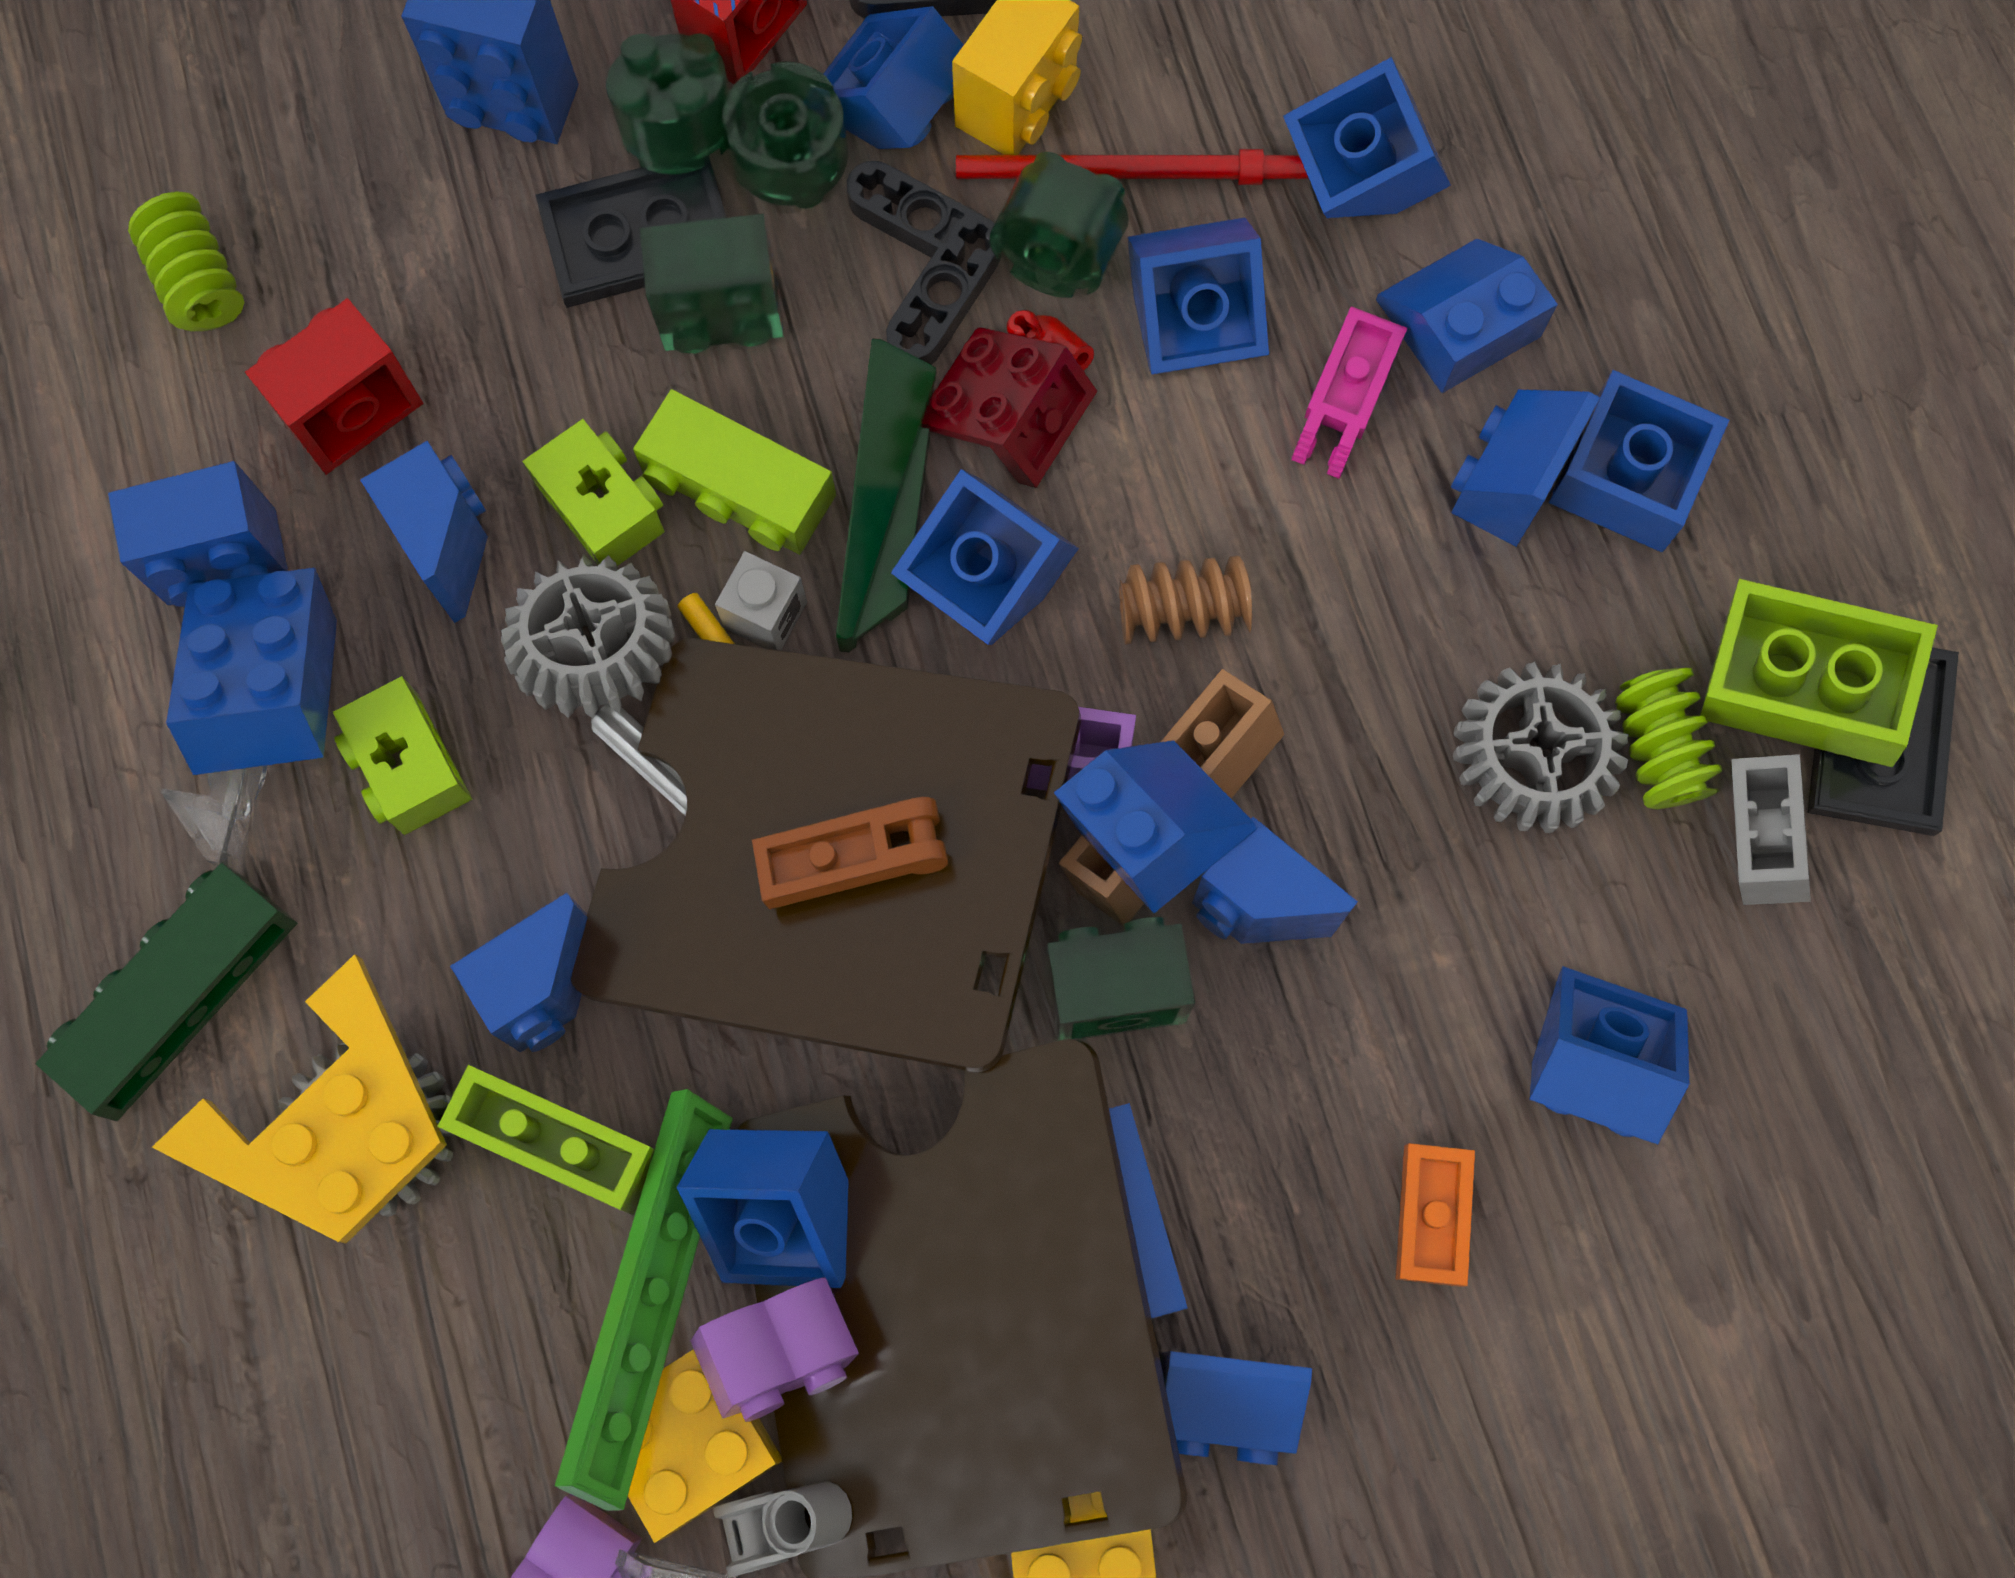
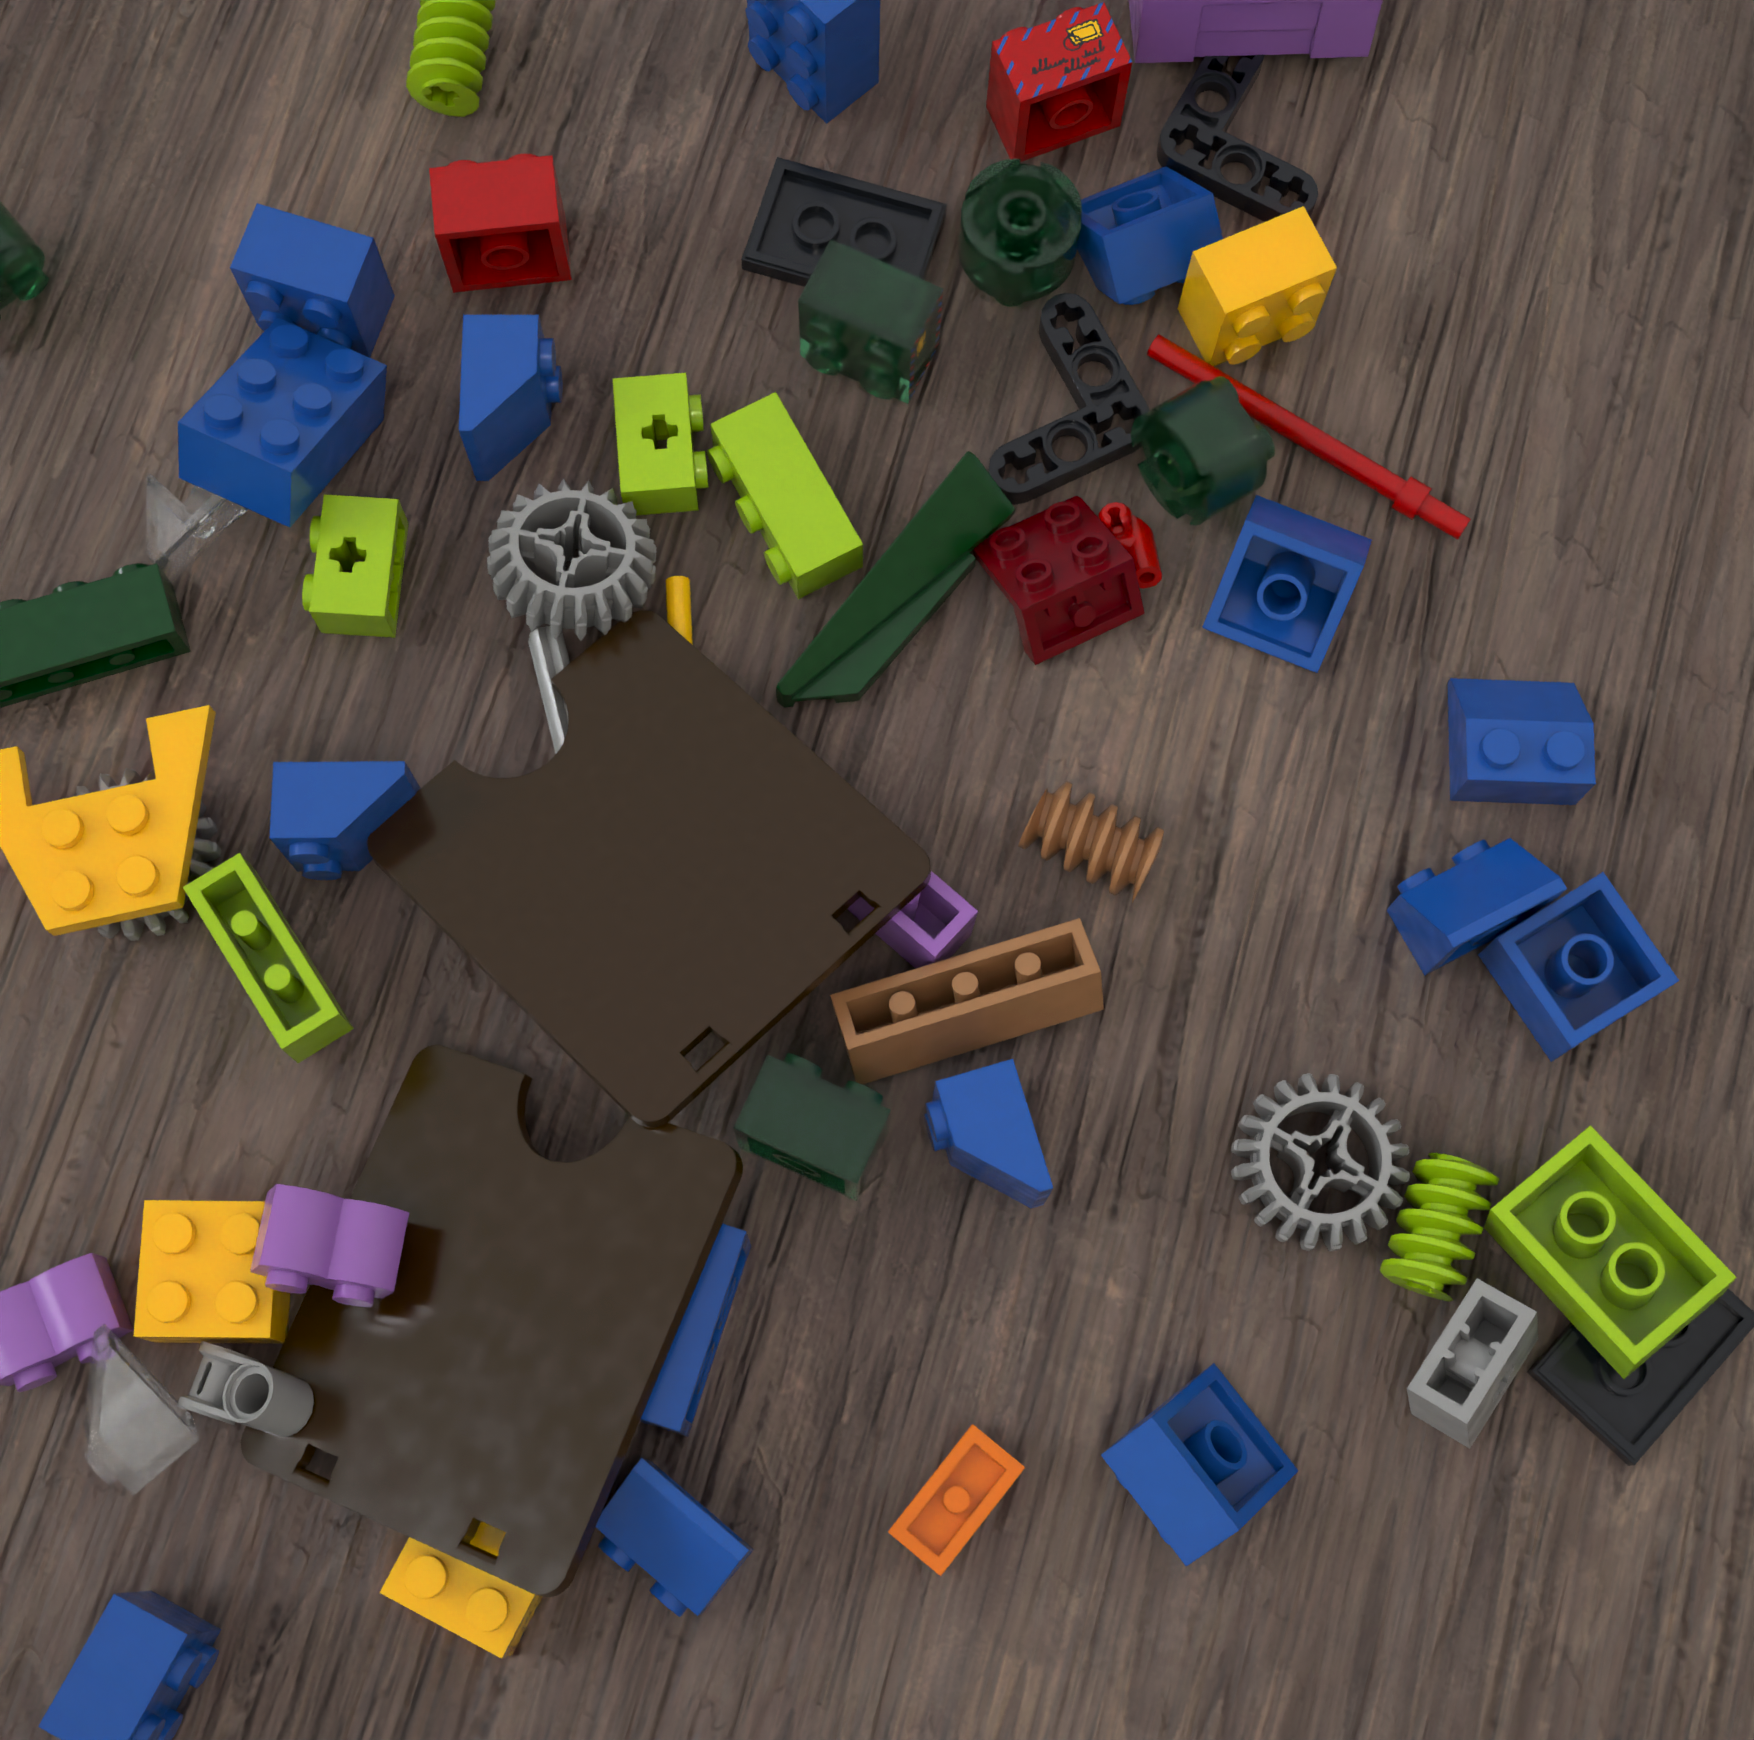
camera: 30 degrees right, 0 degrees up
(639, 1316) = (252, 1136): bright green tile -> none
(669, 100) = (937, 141): clear green brick -> none
(761, 602) = (734, 619): light grey brick -> none
(770, 1206) = (405, 1125): blue slope -> none
(848, 852) = (655, 873): dark orange plate -> none
(983, 558) = (945, 697): blue slope -> none
(1153, 817) = (928, 1005): blue slope -> none
(1350, 385) = (1368, 743): dark pink hinge -> none
(1367, 146) = (1525, 542): blue slope -> none

